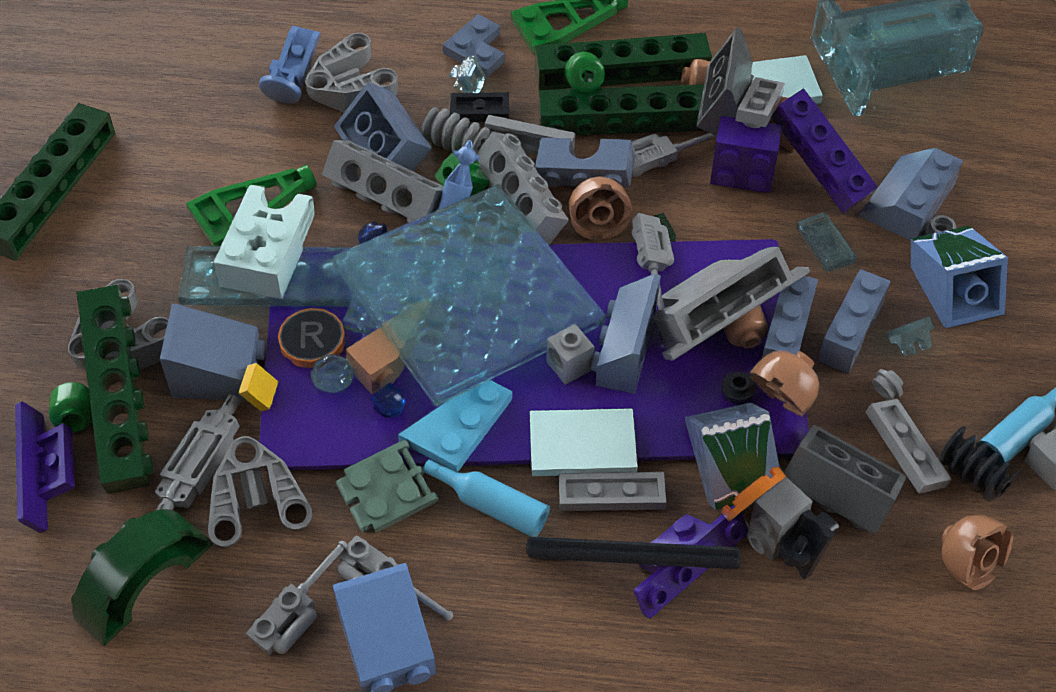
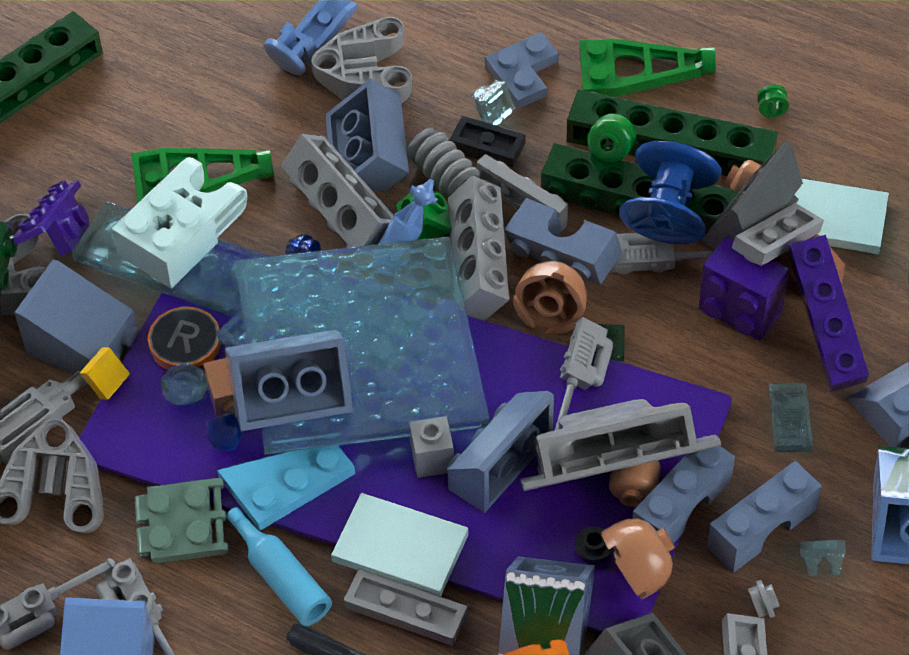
camera: 25 degrees right, 0 degrees up
(148, 269) = (58, 216): none -> dark purple bracket
(435, 334) = (289, 379): none -> sand blue slope
(662, 112) = (675, 172): none -> blue piece
(684, 14) = (772, 101): none -> green bush

